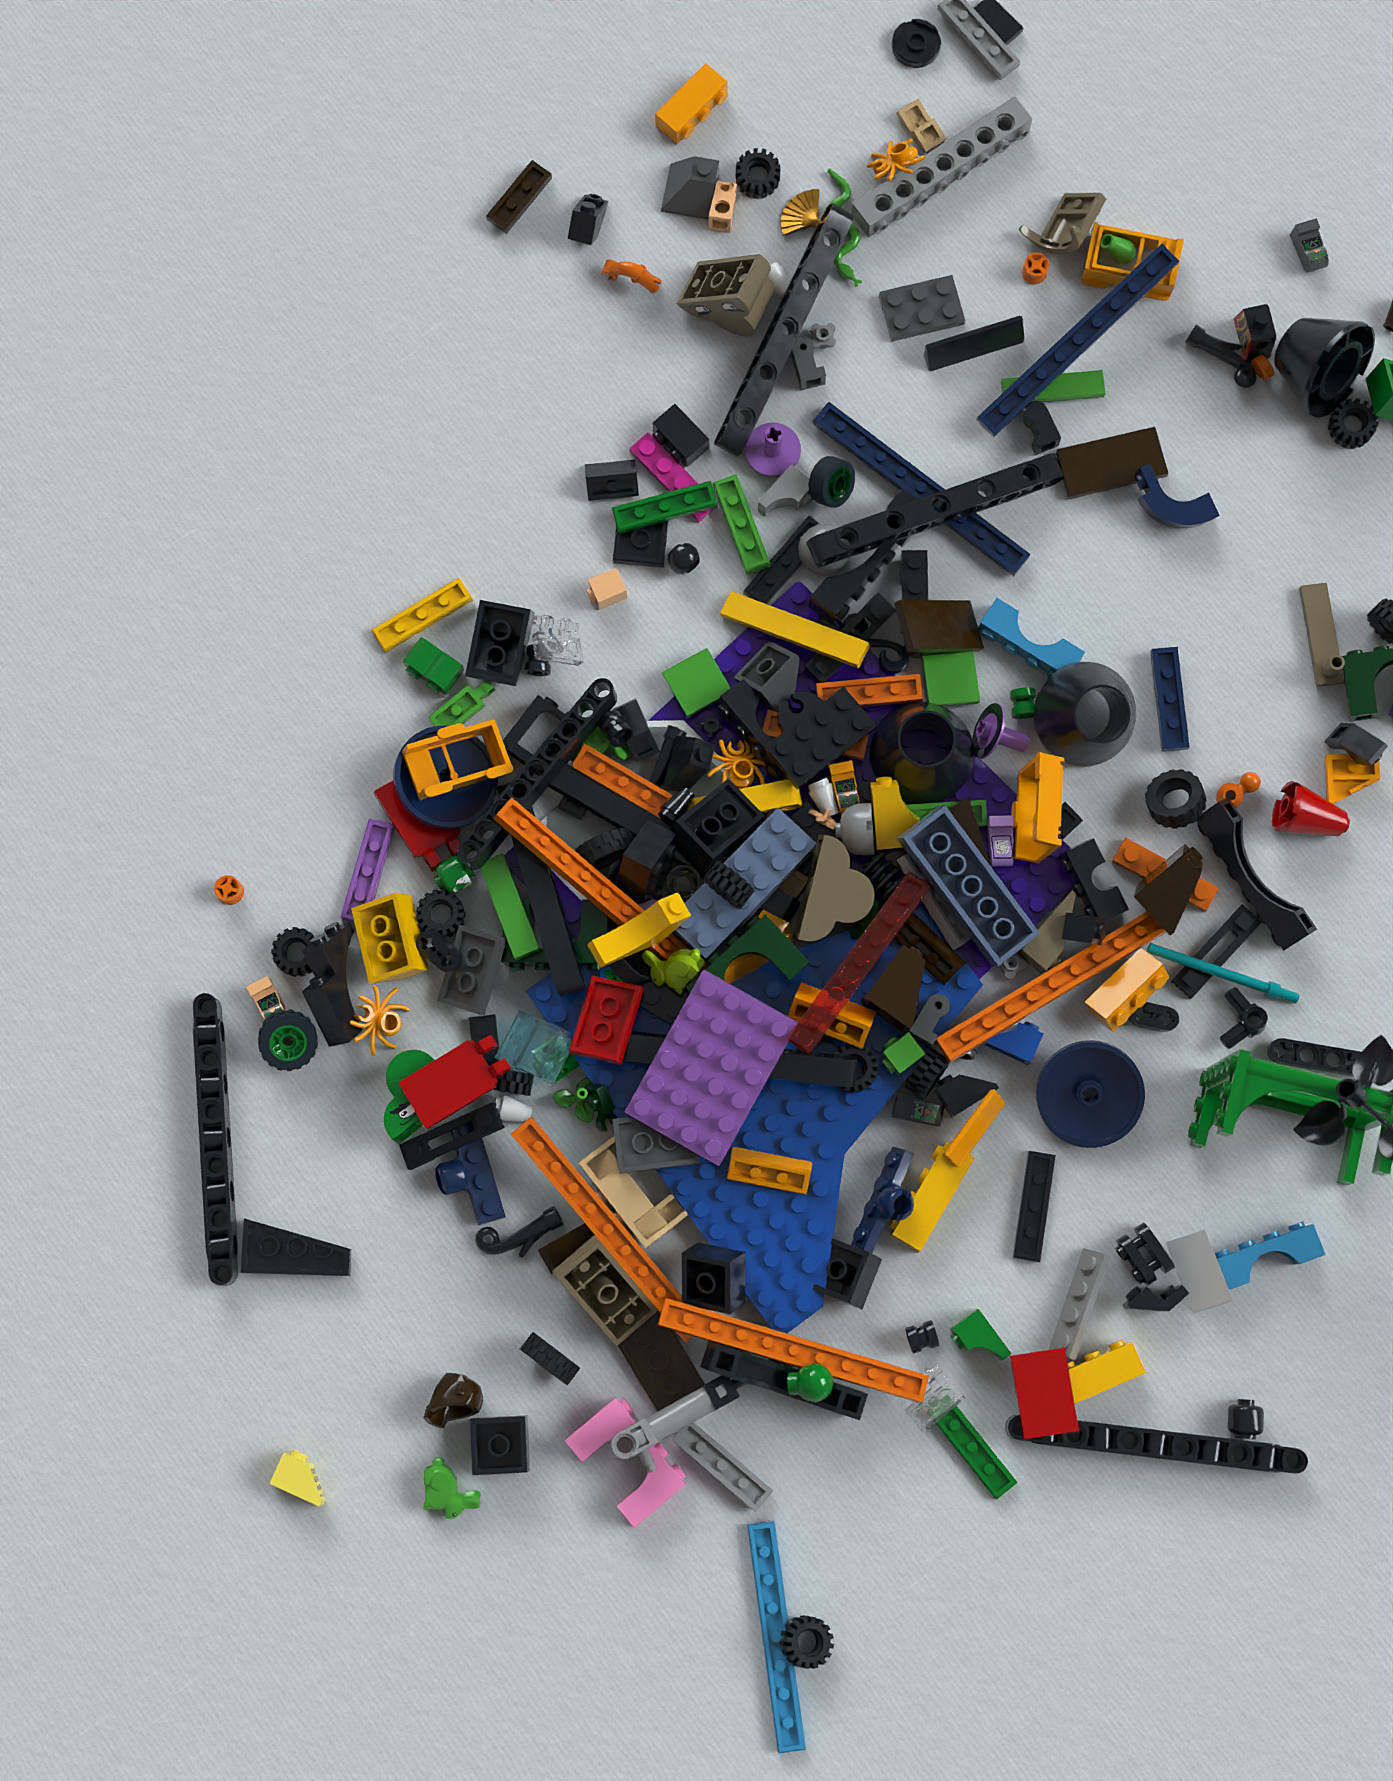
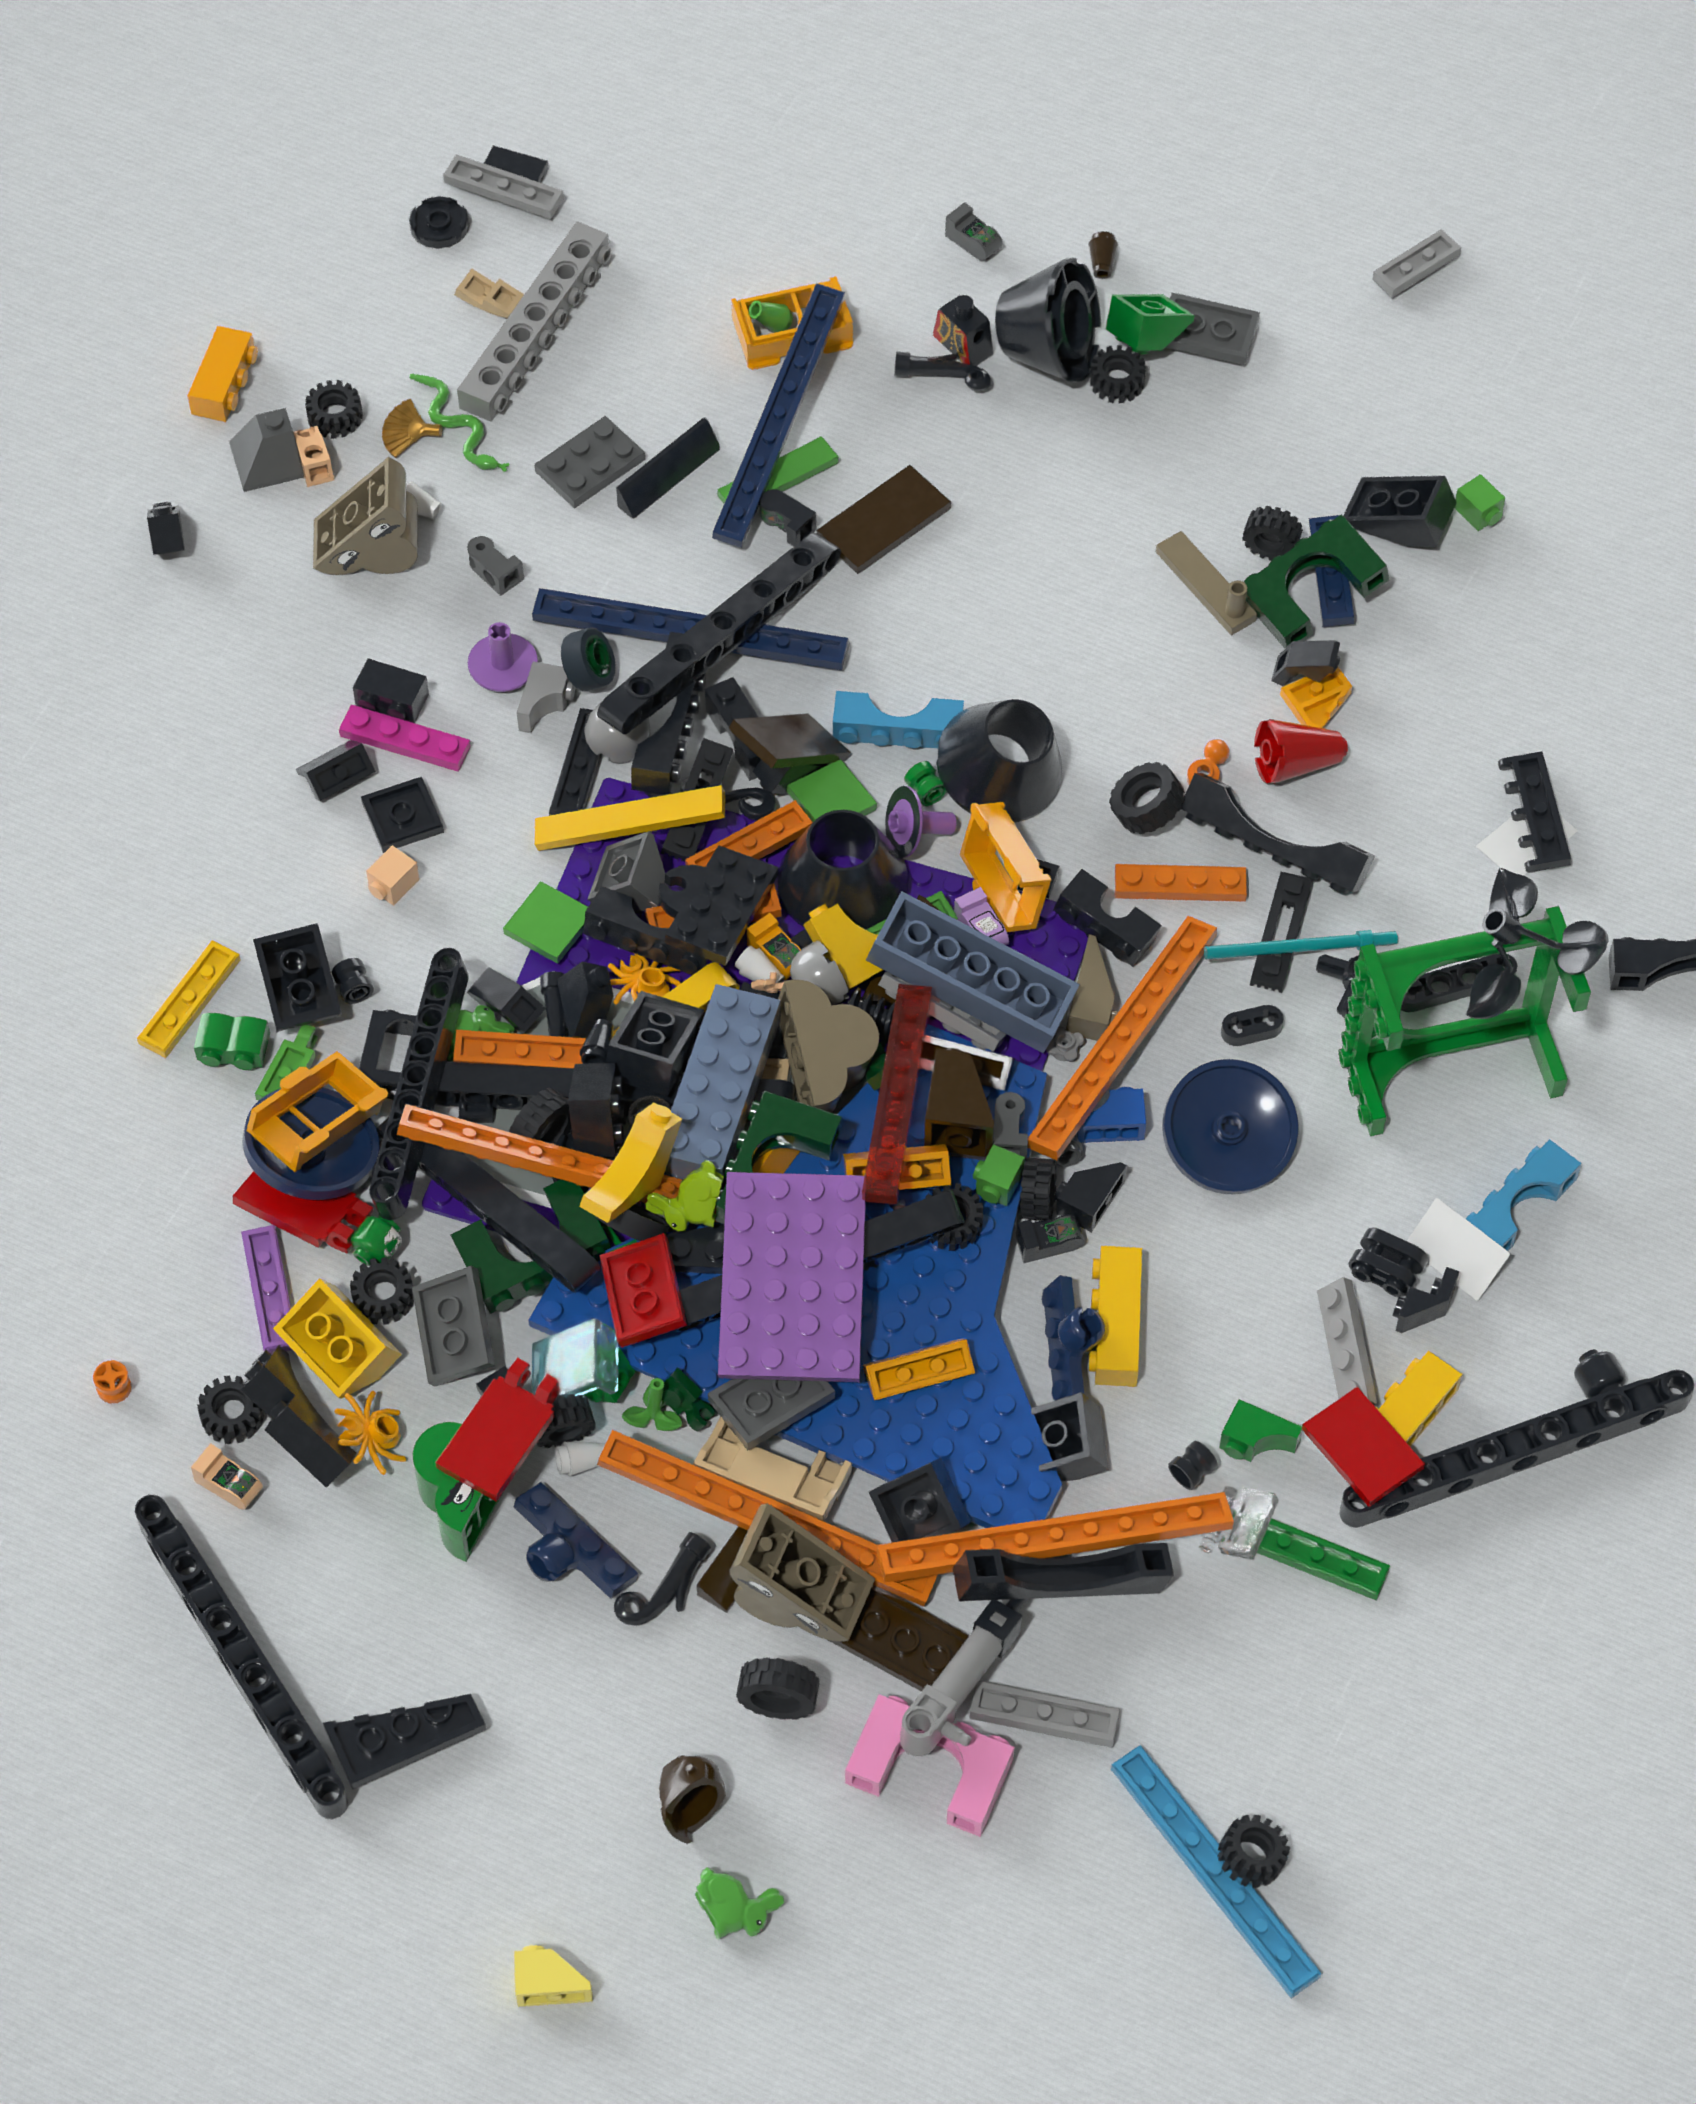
camera: 30 degrees left, 20 degrees down
(277, 1051) = (270, 1482): black wheel -> none
(439, 950) = (404, 1314): black beam -> none
(484, 1120) = (492, 1551): black container -> none
(499, 1445) = (771, 1815): black brick -> none
(509, 907) = (462, 1236): bright green tile -> none
(519, 196) = (73, 540): dark brown plate -> none
(554, 647) = (363, 949): clear plate -> none
(613, 725) = (484, 1000): black wheel -> none
(636, 272) = (251, 553): orange piece -> none
(664, 507) = (412, 766): green tile -> none
(683, 558) = (463, 808): black piece -> none
(711, 726) = (590, 955): black piece -> none
(728, 884) = (707, 1071): black tyre -> none
(741, 524) = (509, 748): bright green tile -> none
(775, 344) = (450, 541): black beam -> none
(811, 1382) = (1096, 1553): green piece -> none
(823, 342) = (498, 537): light grey plate -> none
(898, 155) = (484, 326): light orange animal -> none
(974, 1128) = (1123, 1214): light orange slope -> none
(1034, 1206) = (1237, 1276): black tile -> none
(1036, 262) = (687, 367): orange wheel -> none
(1068, 223) = (703, 315): dark tan piece -> none
(1084, 928) = (1125, 962): black brick -> none
(1127, 989) = (1207, 1007): light orange brick -> none
(1169, 699) = (1082, 711): dark blue plate -> none
(1170, 511) = (972, 533): dark blue arch -> none
(1170, 886) = (1194, 877): dark brown slope -> none
(1262, 367) = (991, 361): orange tile -> none

